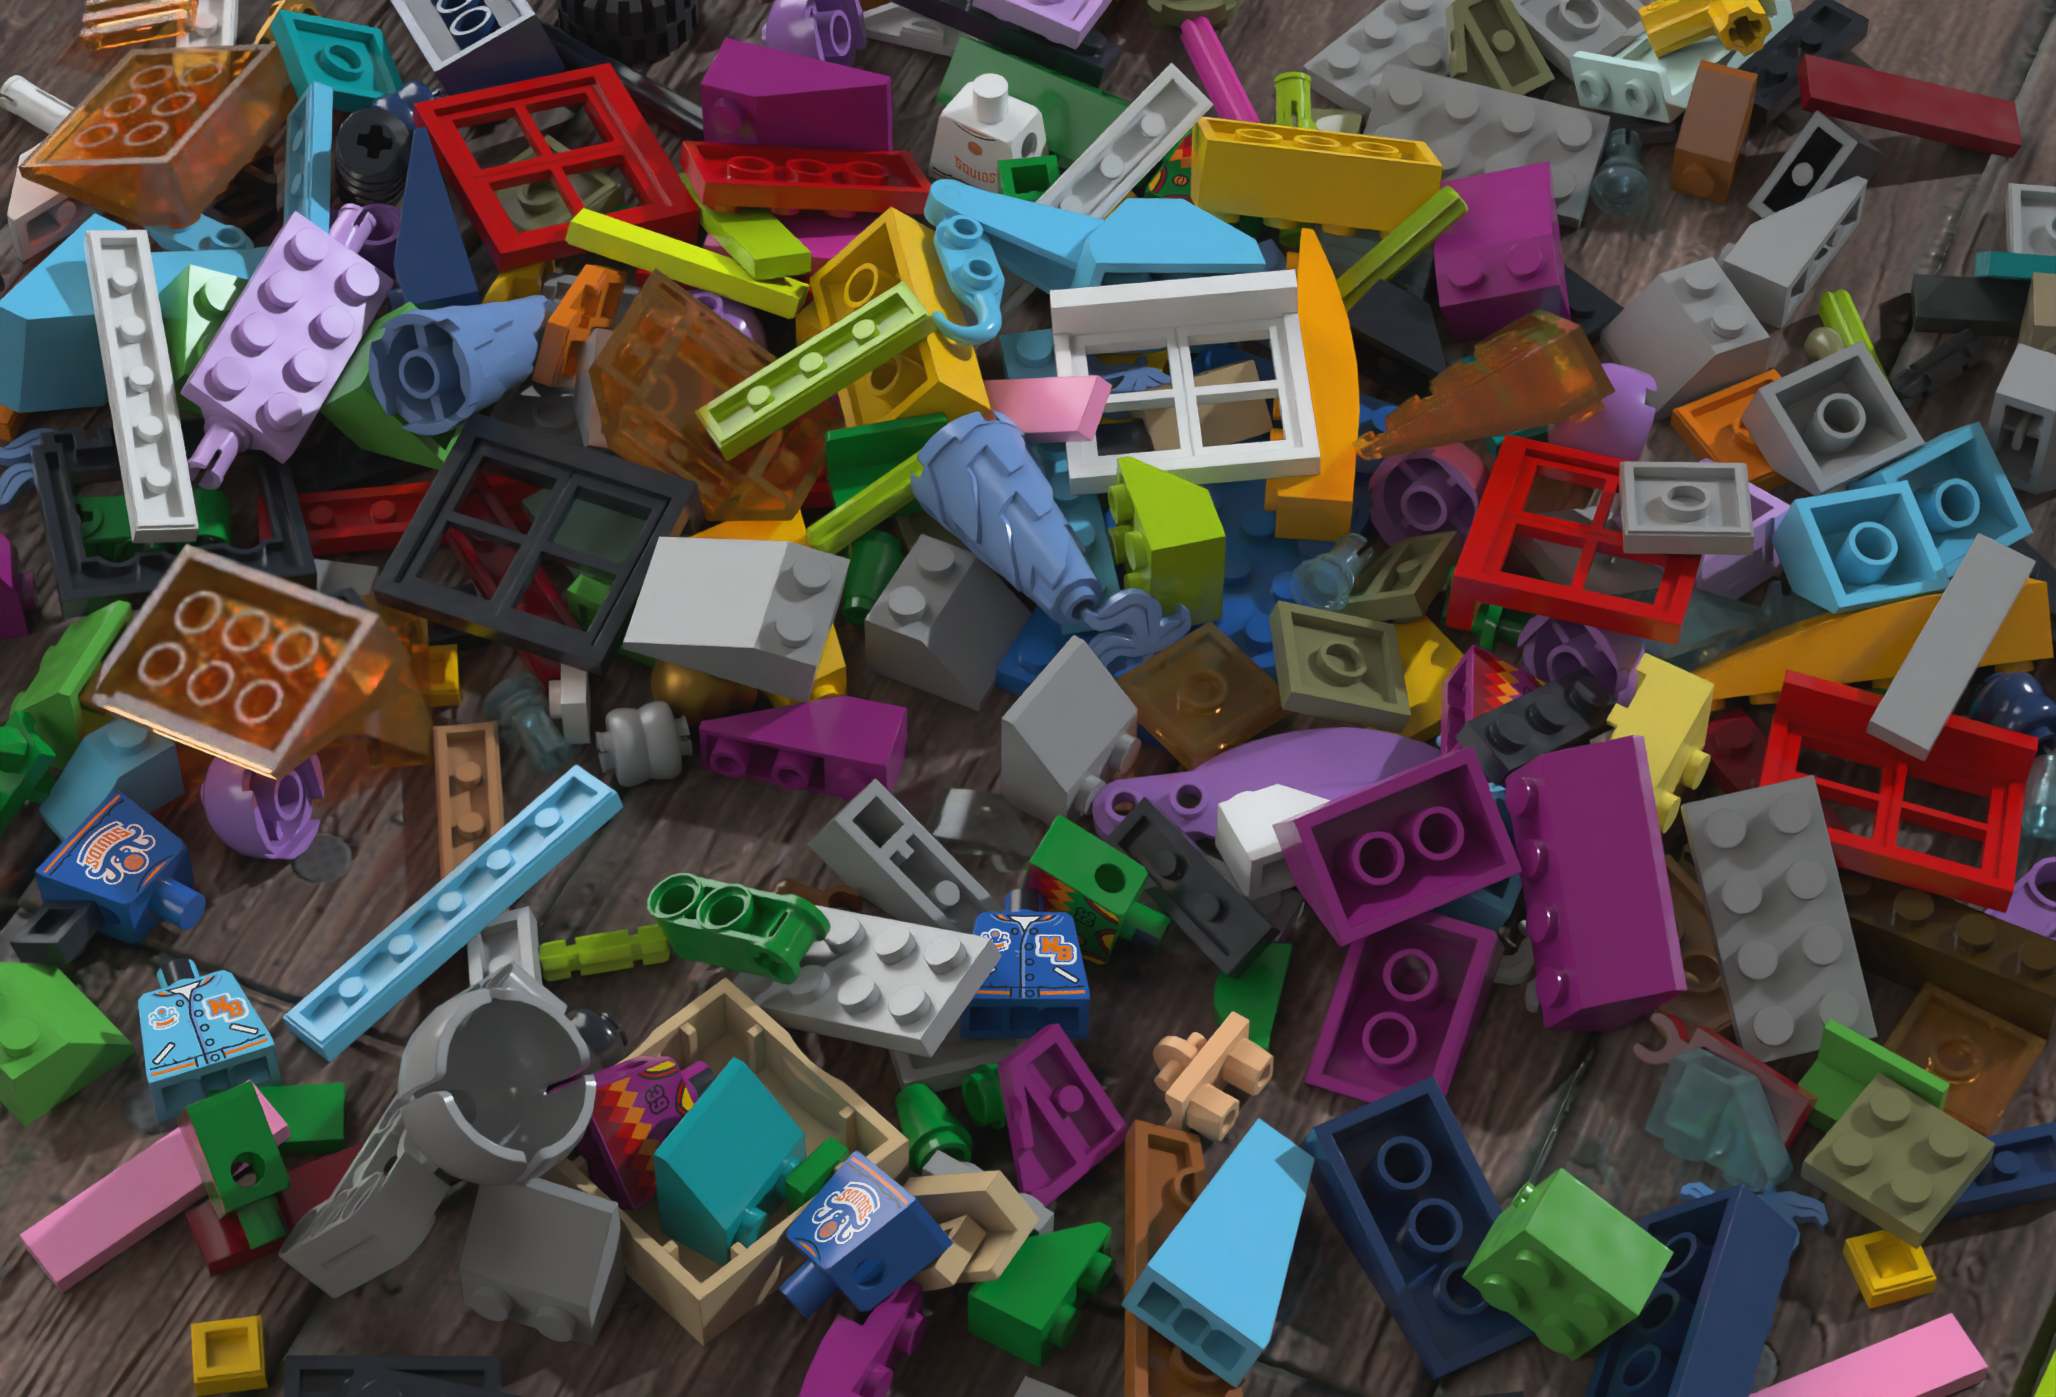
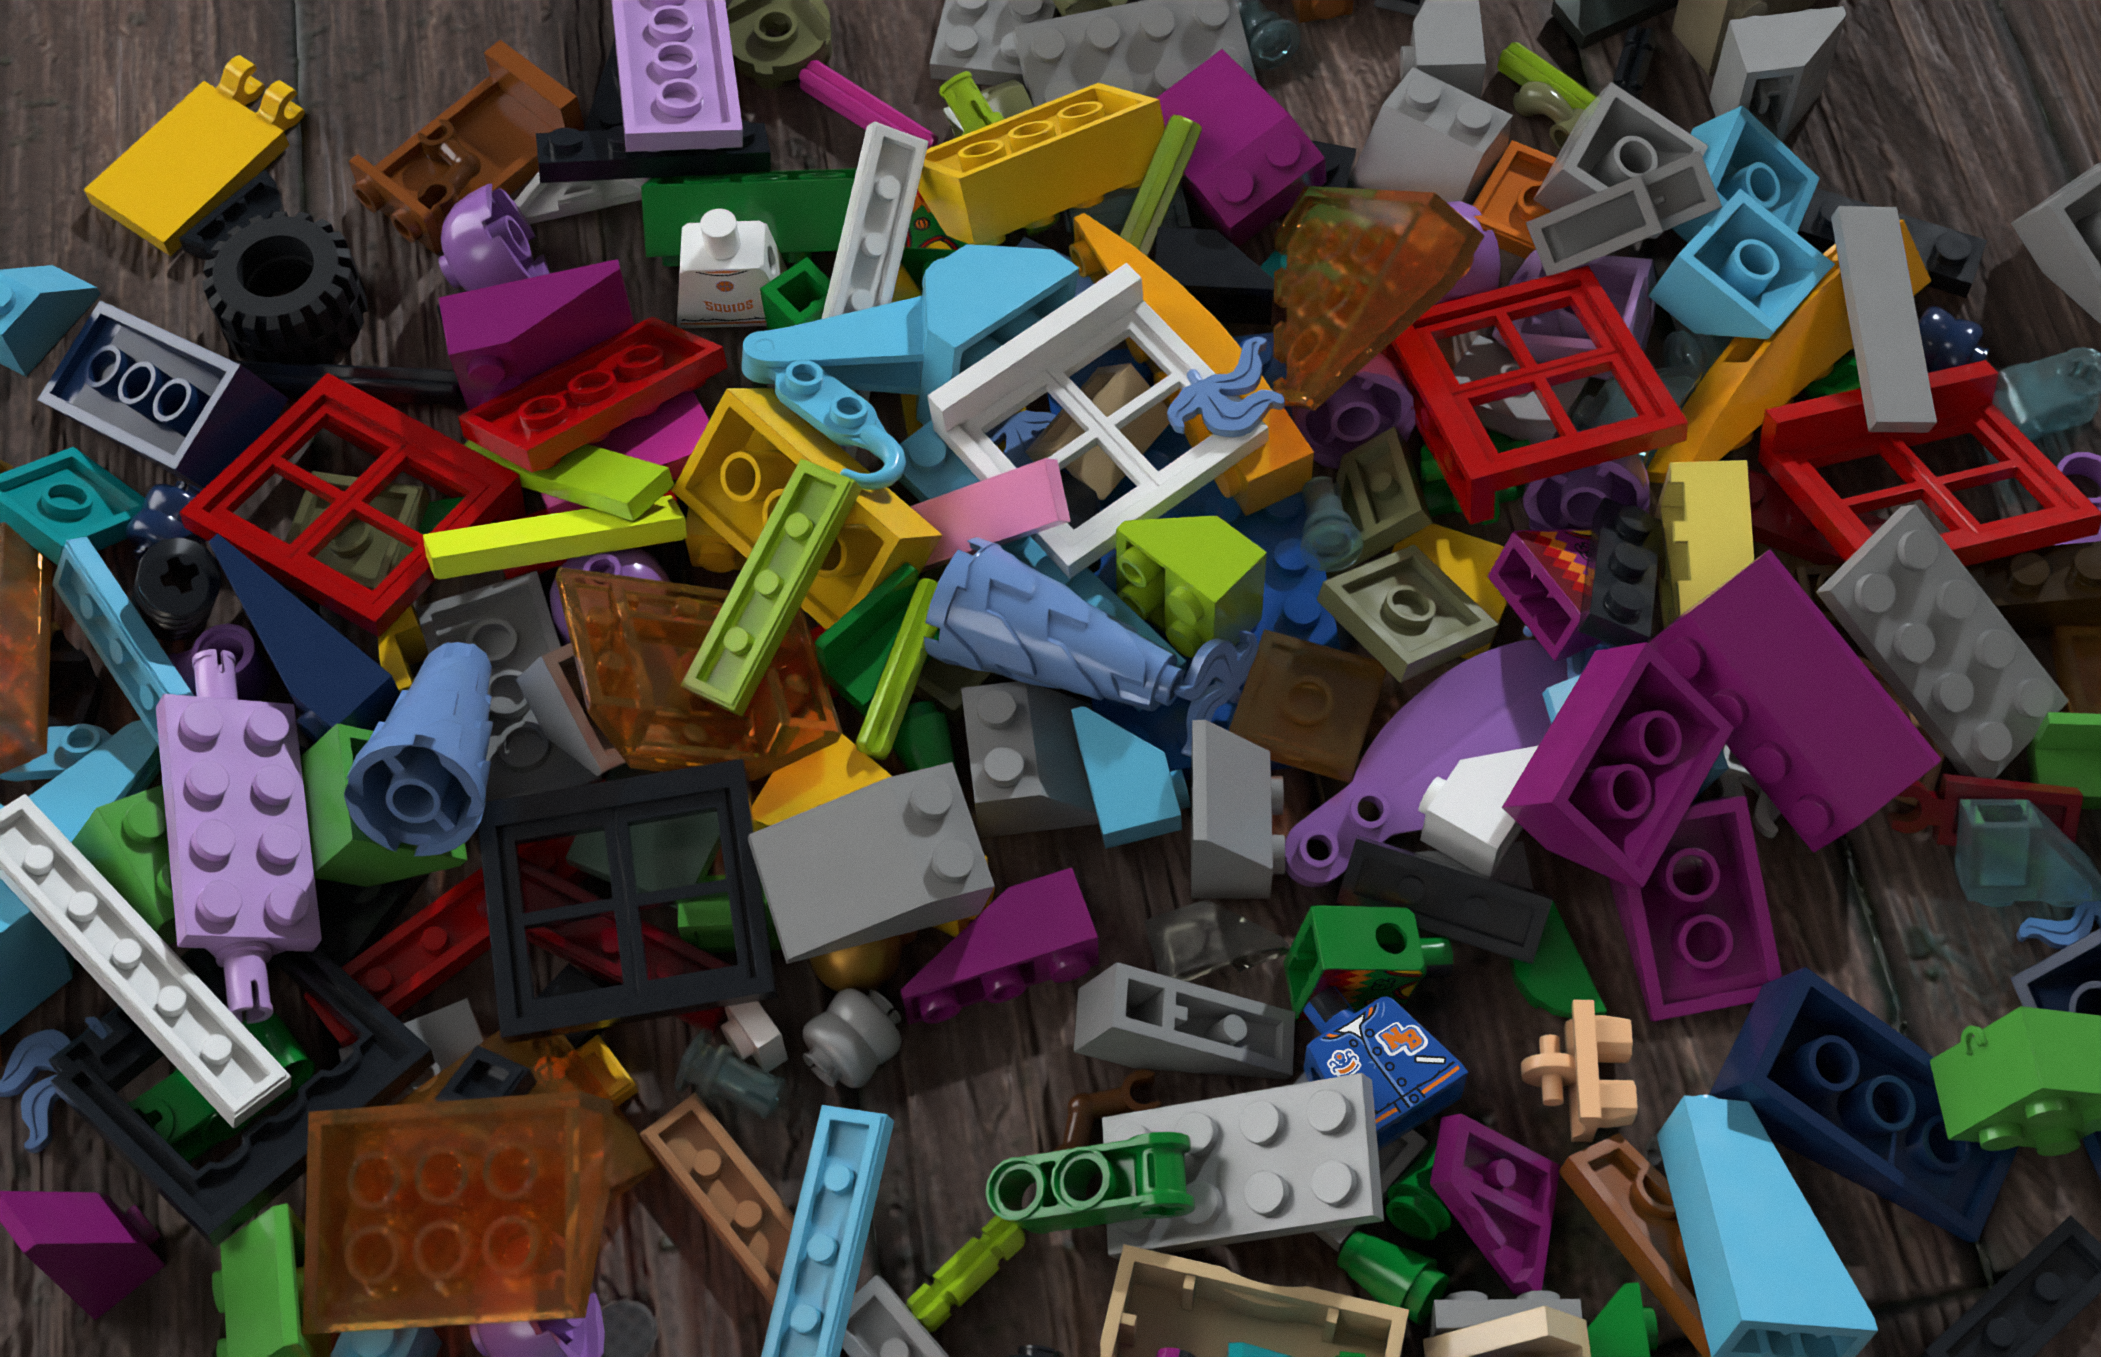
camera: 30 degrees left, 10 degrees up
(587, 305) = (496, 639): orange tile -> none
(994, 665) = (1128, 781): none -> medium azure slope
(1286, 424) = (1218, 412): none -> medium blue piece
(1685, 508) = (1600, 310): light grey plate -> none
(1794, 450) = (1624, 214): none -> light grey slope

